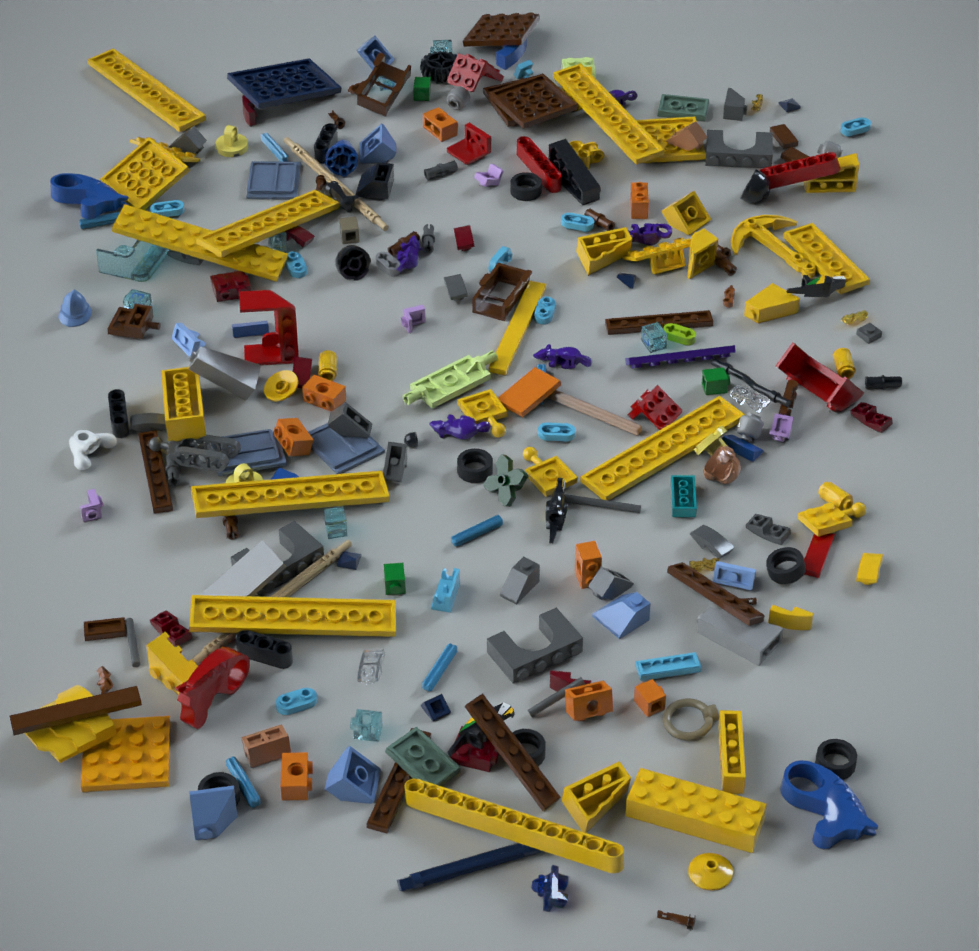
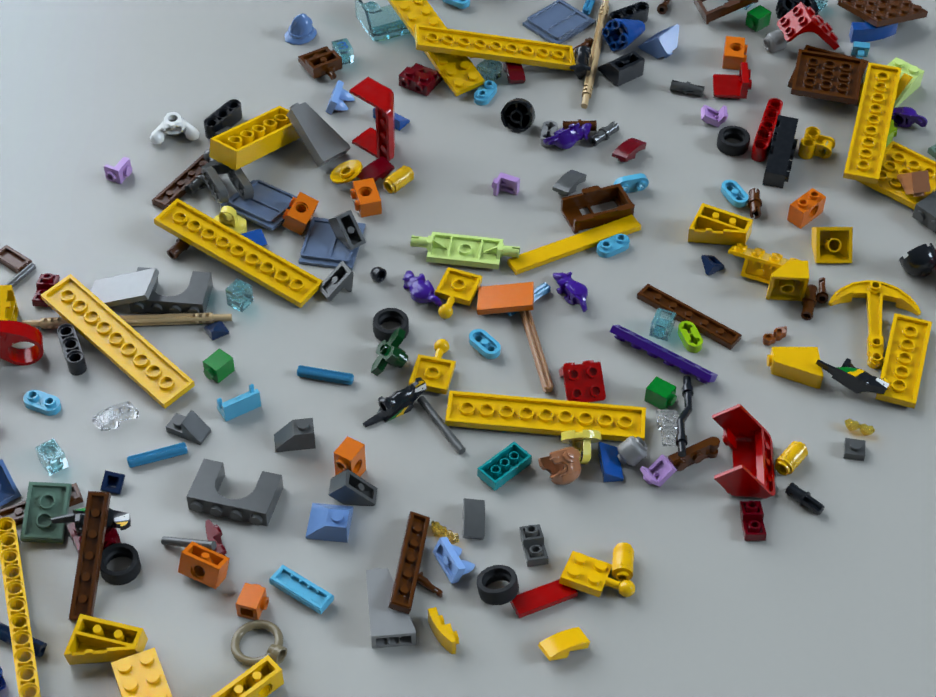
camera: 45 degrees right, 5 degrees up
(349, 230) = (554, 90): dark tan brick -> none
(436, 634) = (189, 427): none -> dark grey slope
(650, 233) = (773, 239): dark purple animal -> none

